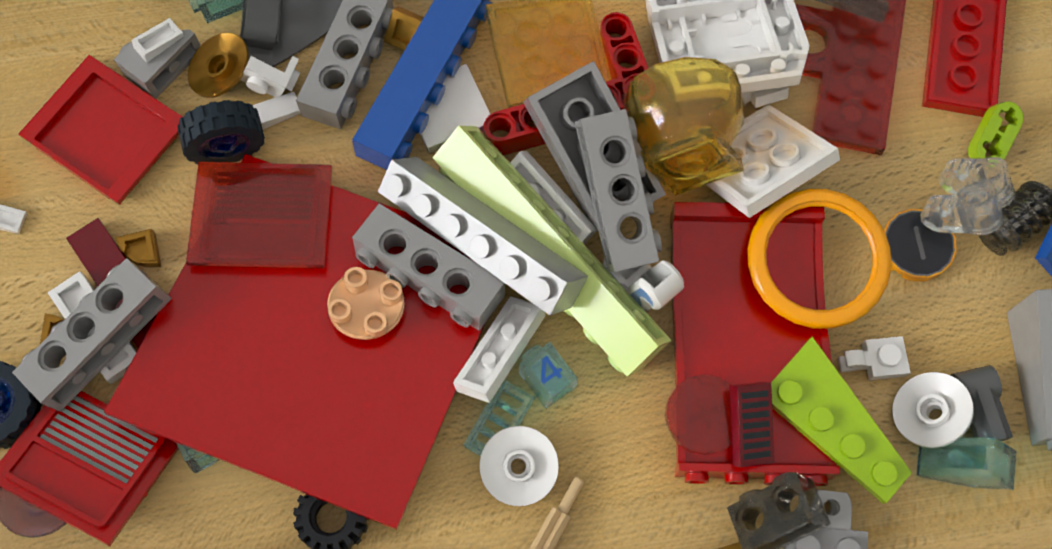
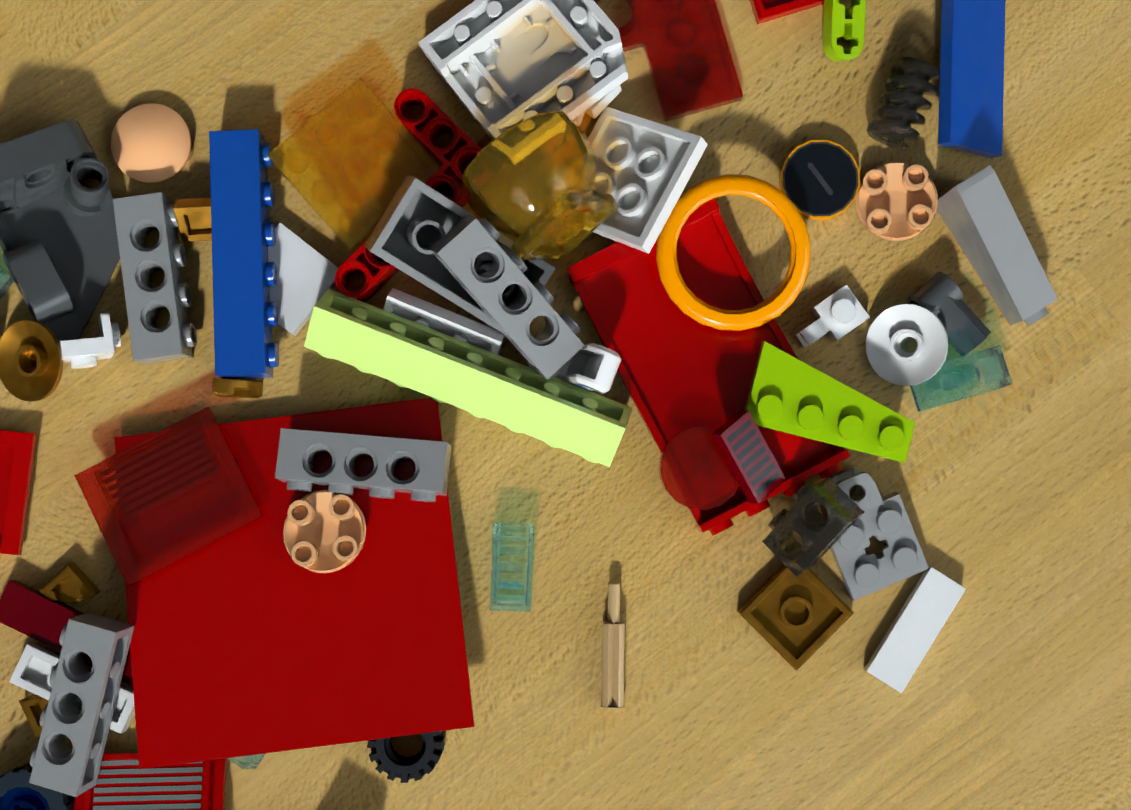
camera: 25 degrees left, 15 degrees up
(220, 132) = (79, 436): black wheel -> none
(277, 109) = (116, 373): white piece -> none
(361, 165) = (237, 388): none -> pearl gold tile
(483, 235) = (397, 403): brick -> none
(499, 349) = (475, 503): white plate -> none
(539, 461) = (563, 621): white dish -> none
(547, 374) = (531, 502): clear light blue brick -> none
(977, 292) = (896, 200): none -> light nougat dish
(979, 193) = (862, 116): clear piece -> none

